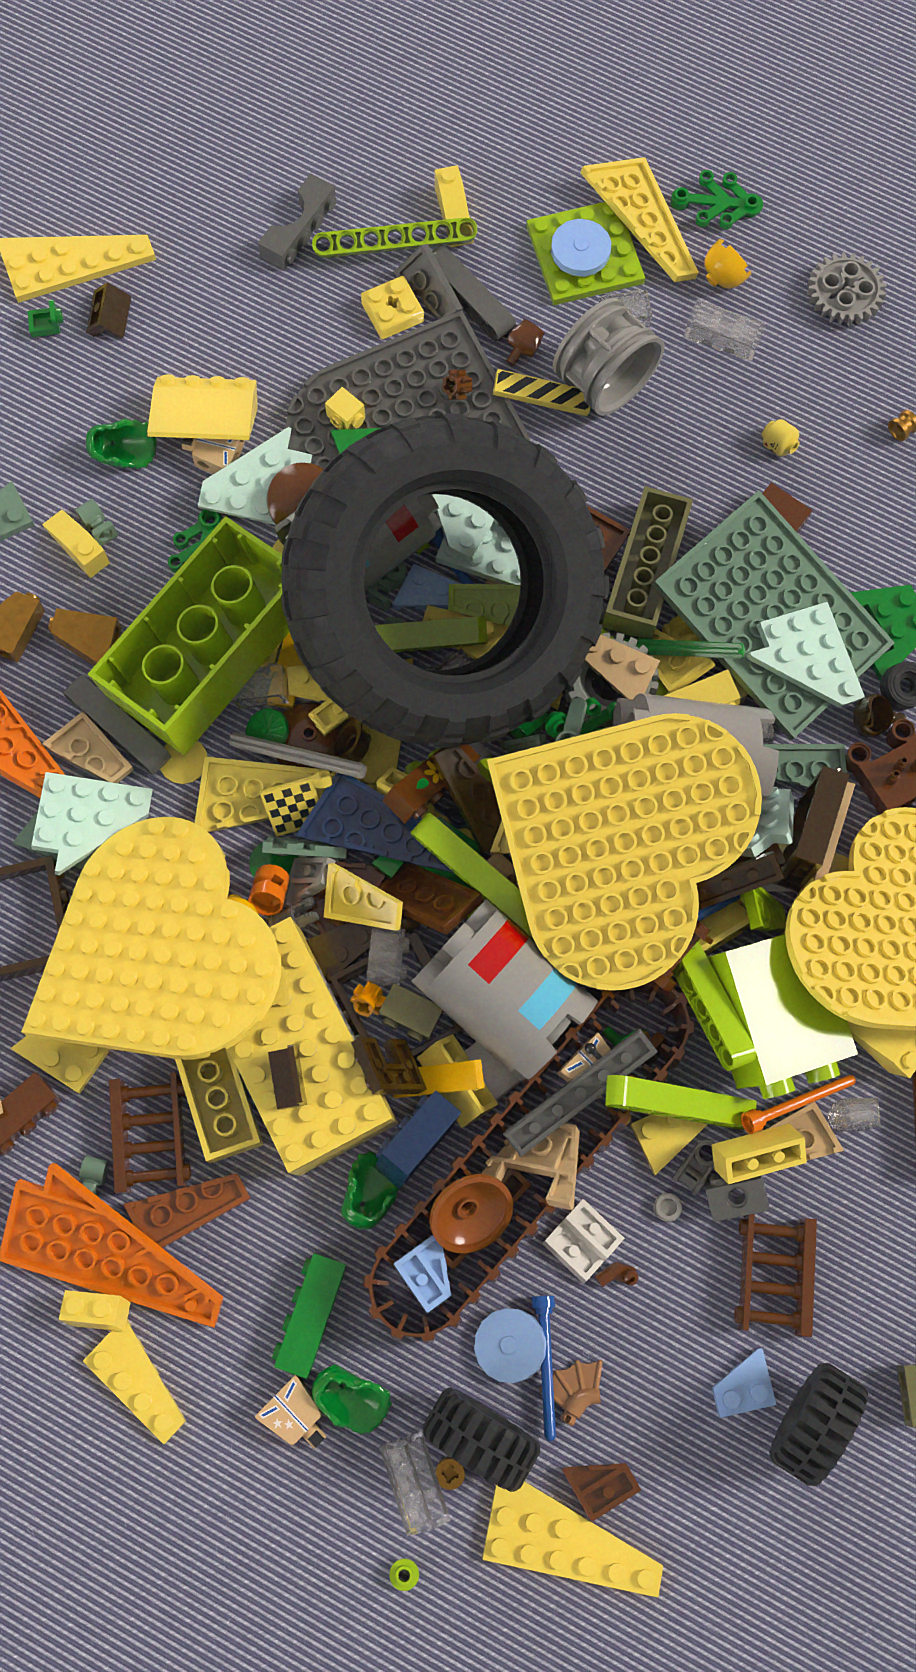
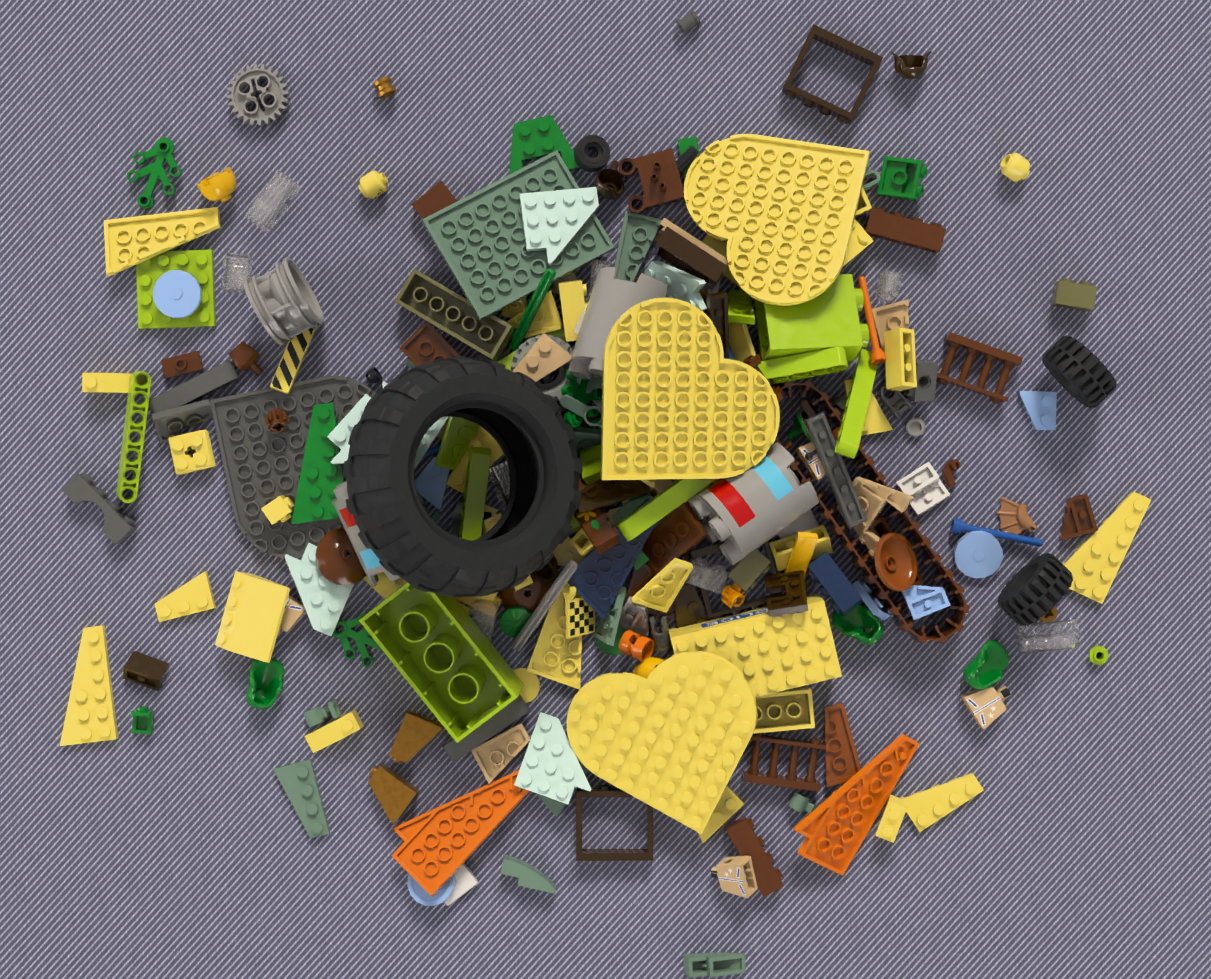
camera: 75 degrees left, 15 degrees up
(208, 341) = (187, 600): none -> light yellow wing
(287, 1078) = (782, 663): dark brown panel -> none
(310, 1316) = (927, 679): green brick -> none
(404, 1200) = (873, 603): none -> light blue wing
(496, 276) = (182, 364): none -> reddish brown plate

